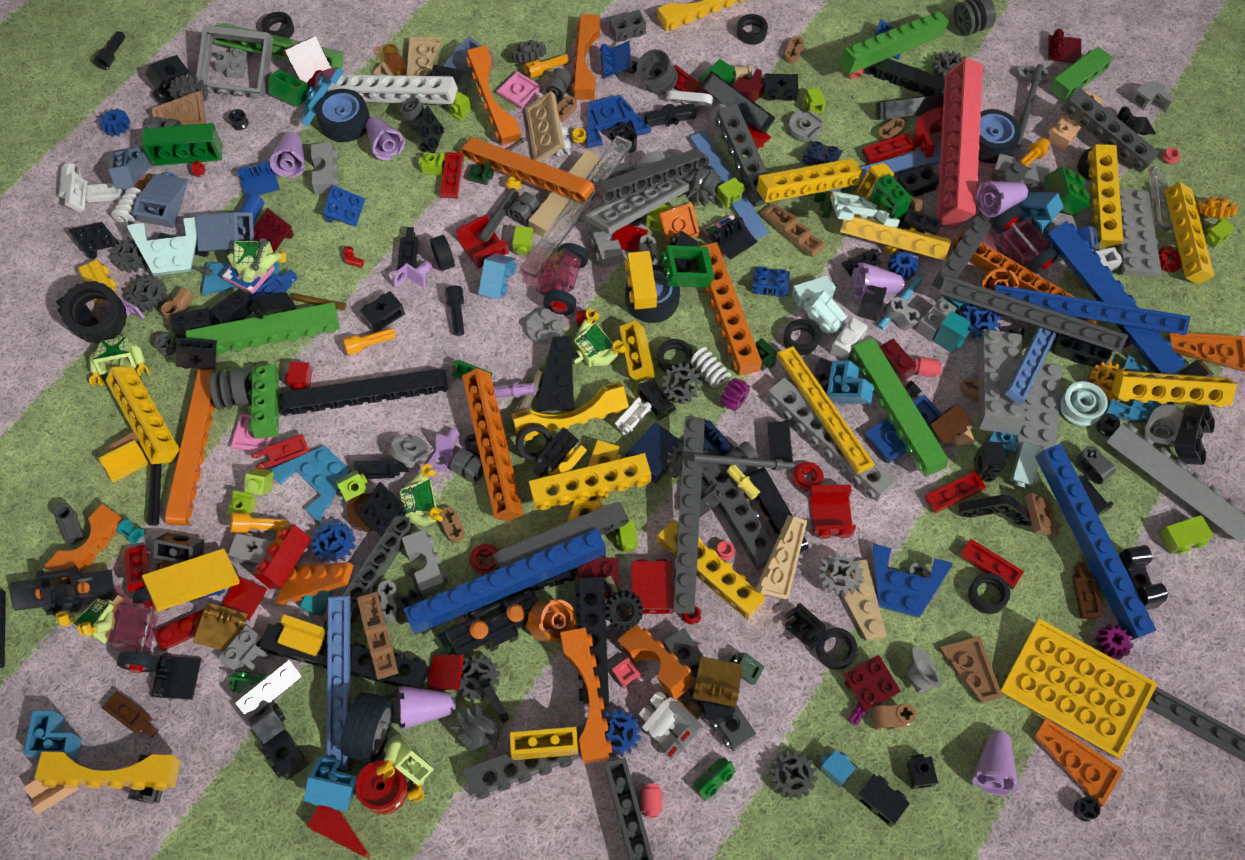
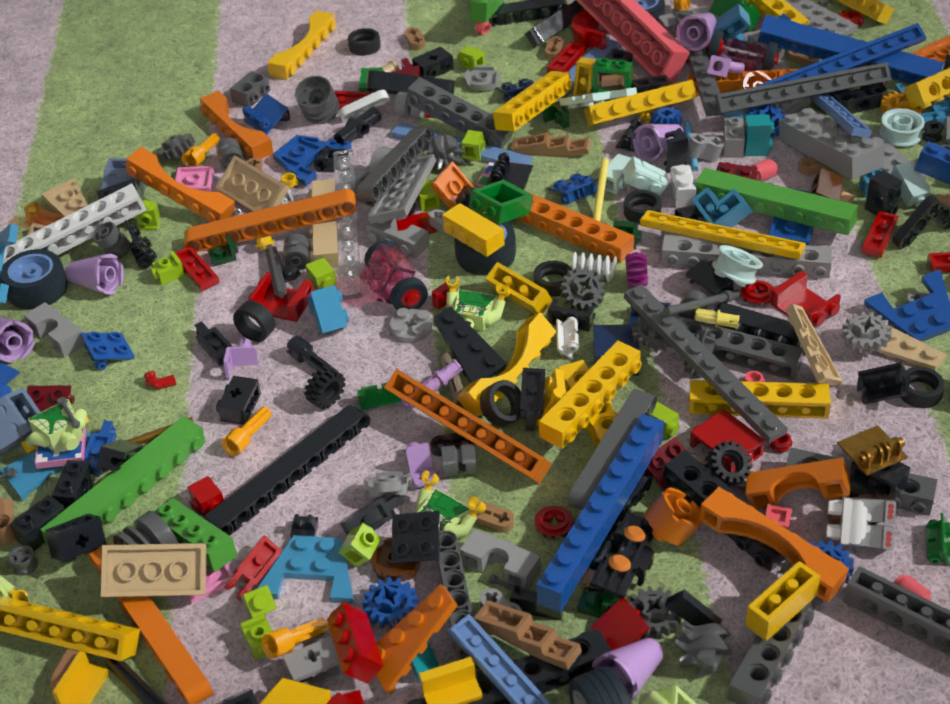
camera: 35 degrees left, 20 degrees down
(212, 415) = (153, 570): none -> tan plate
(337, 443) = (304, 525): none -> black tile
(437, 343) = (324, 387): none -> black tyre
(507, 223) = (291, 272): none -> black hinge
(787, 295) = (600, 189): none -> light yellow bar
(803, 446) = (736, 265): none -> light aqua wheel
(991, 246) = (724, 66): none -> lavender bracket

